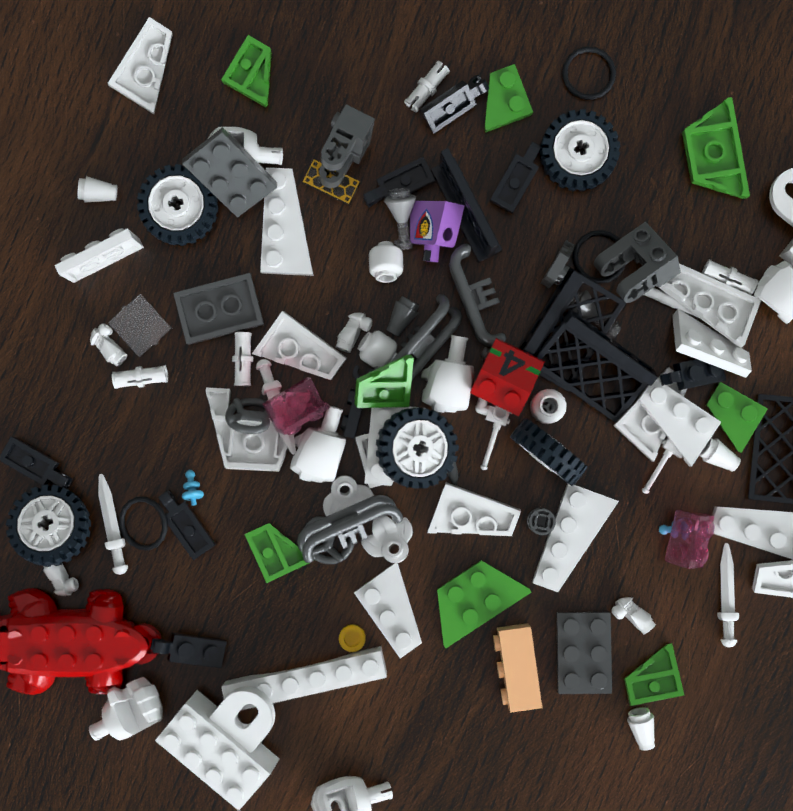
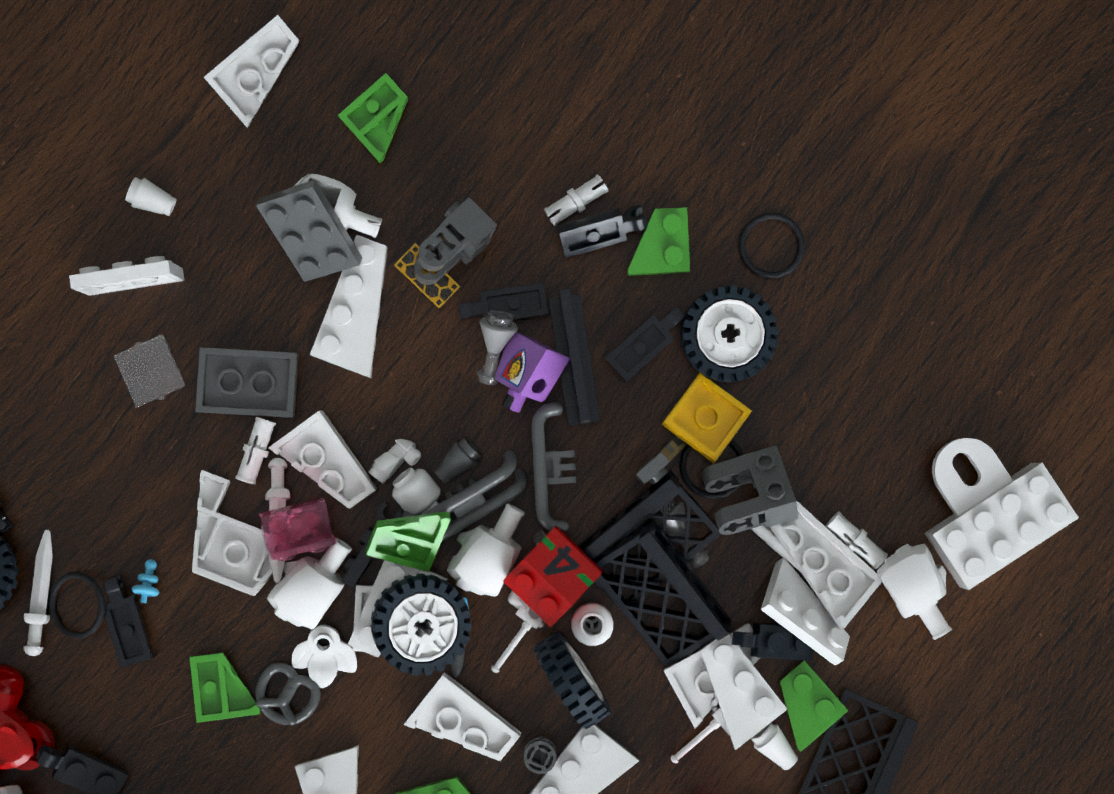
camera: 15 degrees right, 0 degrees up
(106, 345) = (103, 383): white arm -> none
(140, 376) = (129, 432): white pin -> none
(163, 219) = (222, 264): wheel -> none
(249, 415) = (239, 519): dark grey piece -> none
(346, 524) = (312, 684): dark grey piece -> none
(385, 262) = (459, 391): white head -> none
(387, 534) = (355, 711): white plate -> none
(583, 220) = (706, 417): none -> yellow plate
(716, 152) = (889, 388): bright green wing -> none

